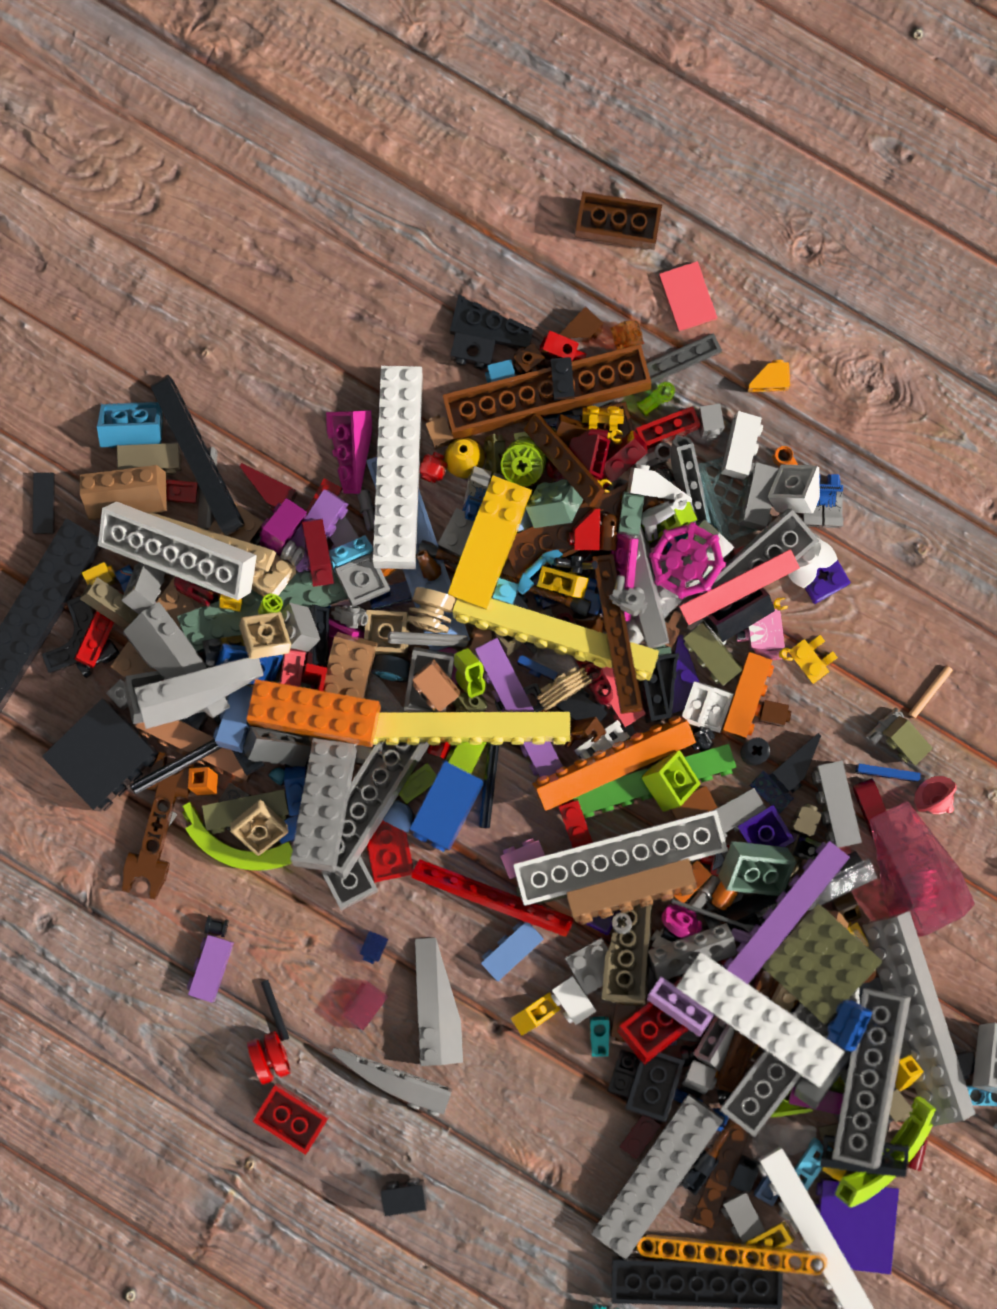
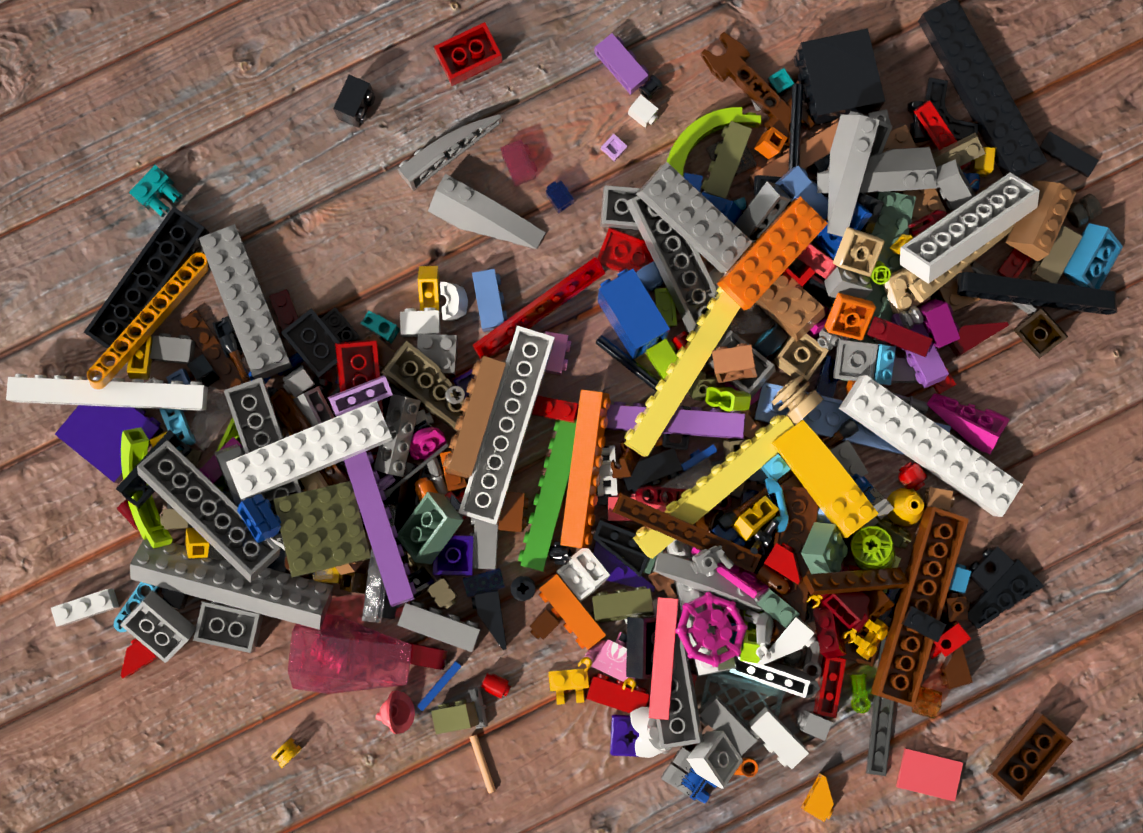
camera: 115 degrees right, 0 degrees up
(88, 457) = (1084, 210): none -> clear smoke wheel
(136, 808) = (780, 81): none -> teal plate
(230, 431) = (1040, 332): none -> dark brown slope
(244, 918) = (643, 111): none -> white brick
(255, 838) = (707, 160): tan brick -> none
(270, 1058) = (525, 64): red wheel -> none
(275, 1010) = (558, 93): black bar -> none
(295, 925) = (614, 147): none -> lavender plate
(327, 608) = (855, 326): none -> orange brick
(427, 639) = (775, 383): light grey axle -> none
(429, 567) = (834, 421): reddish brown cone -> none
(531, 980) = (456, 301): none -> white cylinder
(563, 687) = (669, 464): tan brick -> none
(671, 781) = (541, 505): lime slope -> none
(797, 615) = (612, 694): none -> red brick
(855, 722) = (496, 685): none -> red brick
(960, 996) = (228, 627): none -> light grey brick

